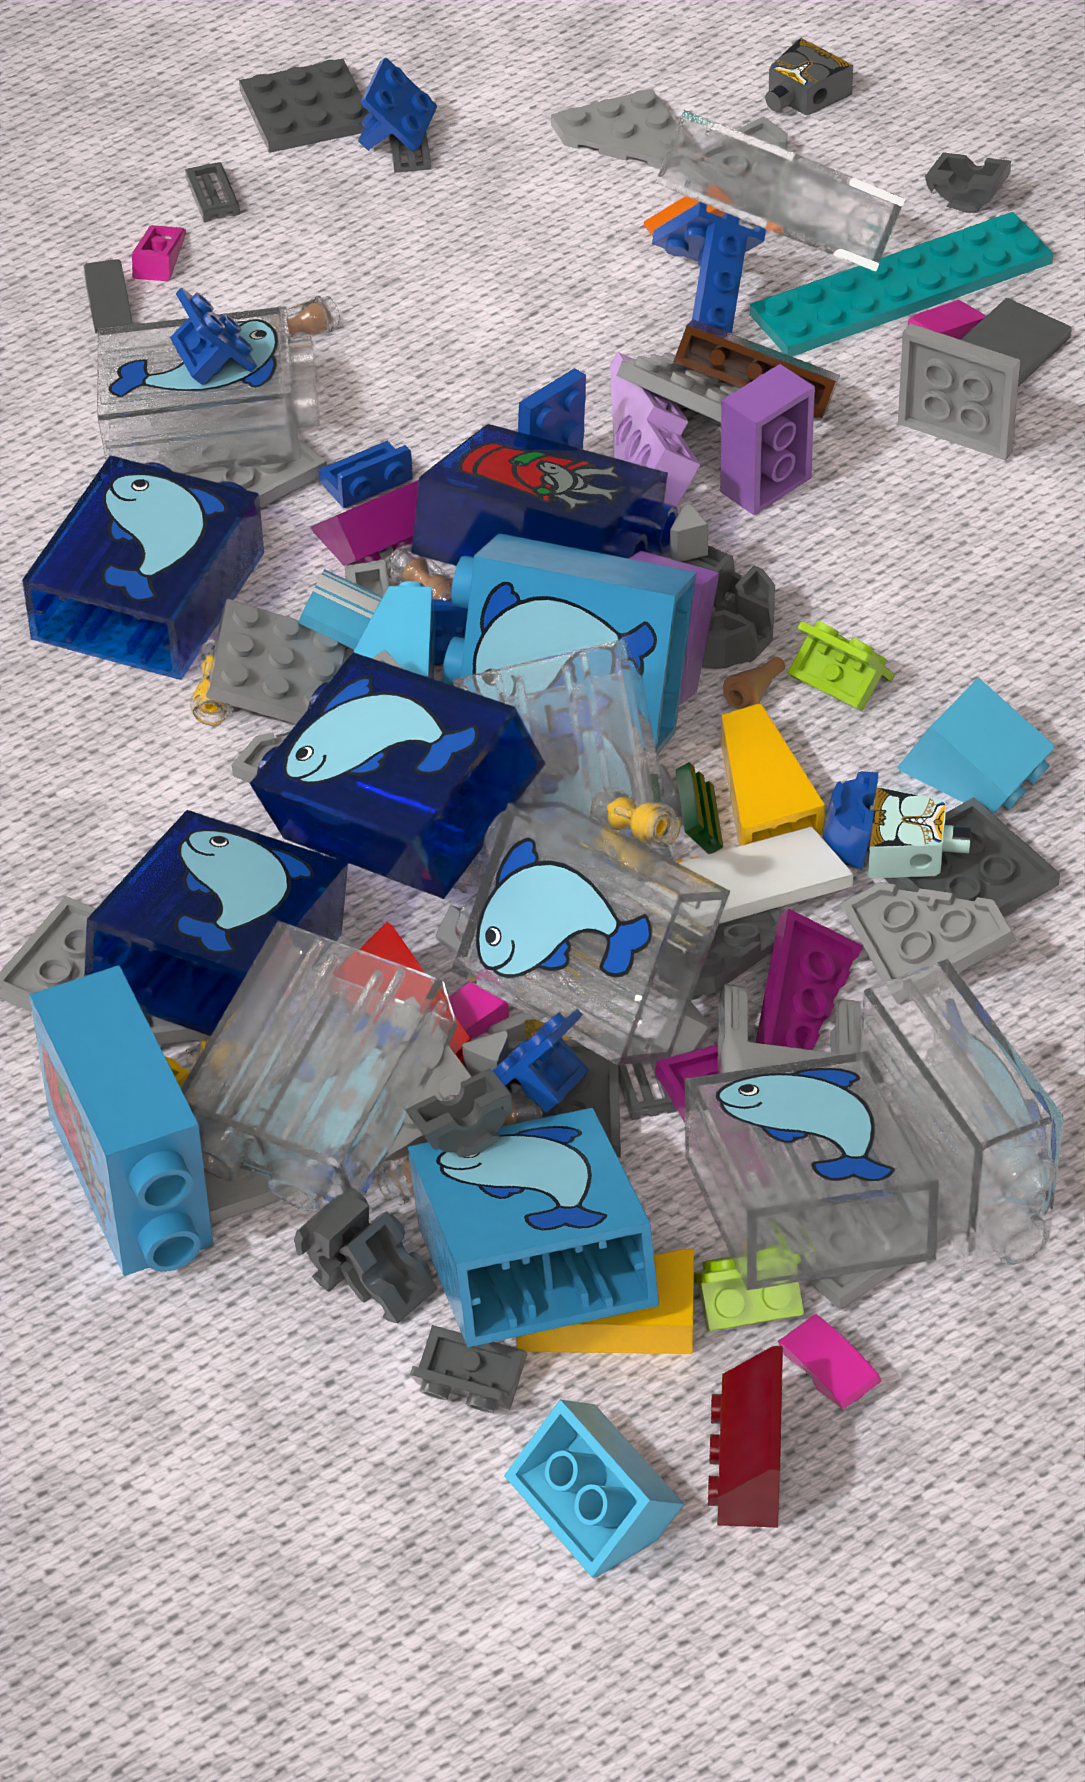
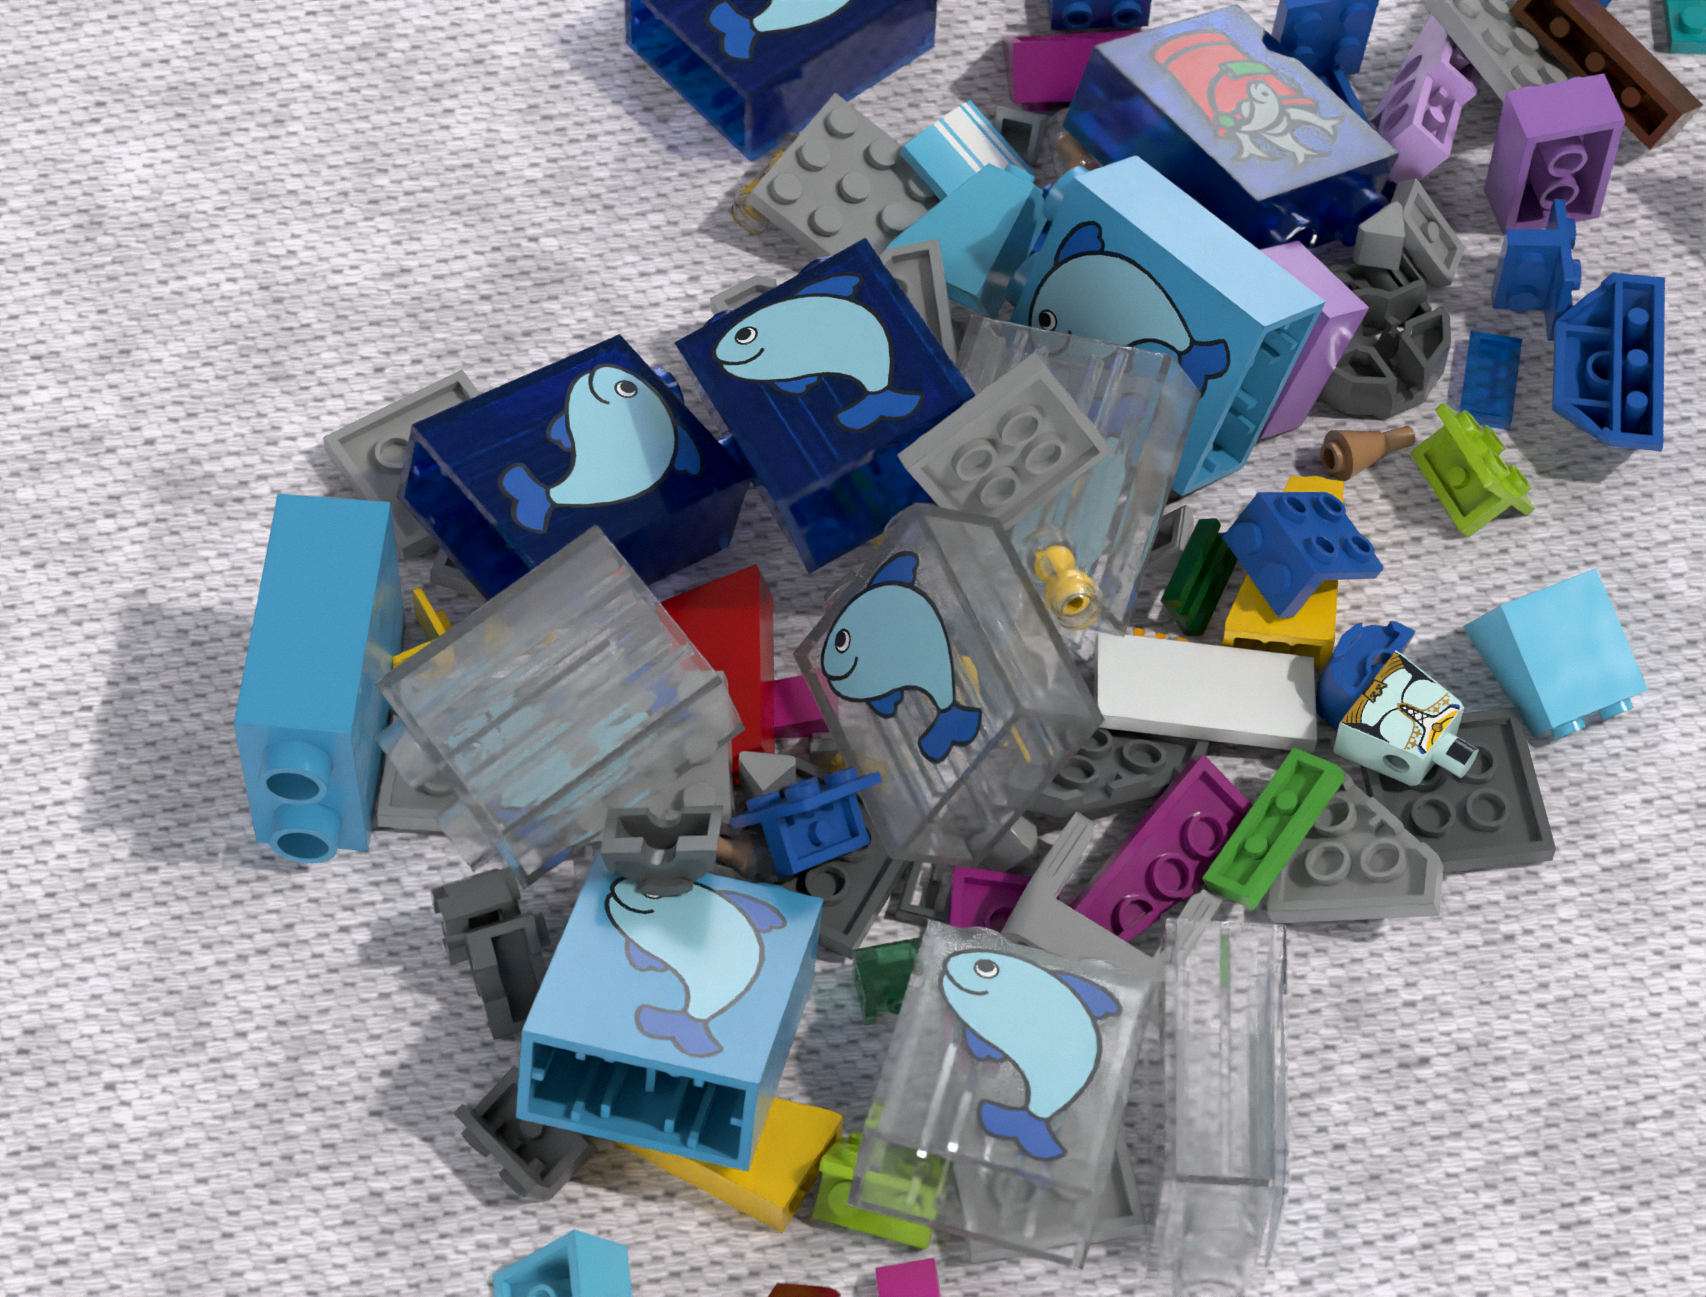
camera: 25 degrees right, 10 degrees up
(550, 739) = (1007, 447): none -> light grey plate
(657, 1153) = (883, 975): none -> clear green brick
(719, 533) = (1428, 234): none -> light grey plate
(761, 753) = (1297, 542): none -> blue bracket
(804, 519) = (1539, 269): none -> blue bracket
(807, 601) = (1490, 378): none -> clear blue tile
(863, 936) = (1273, 828): none -> bright green plate
(894, 555) = (1613, 362): none -> blue wedge

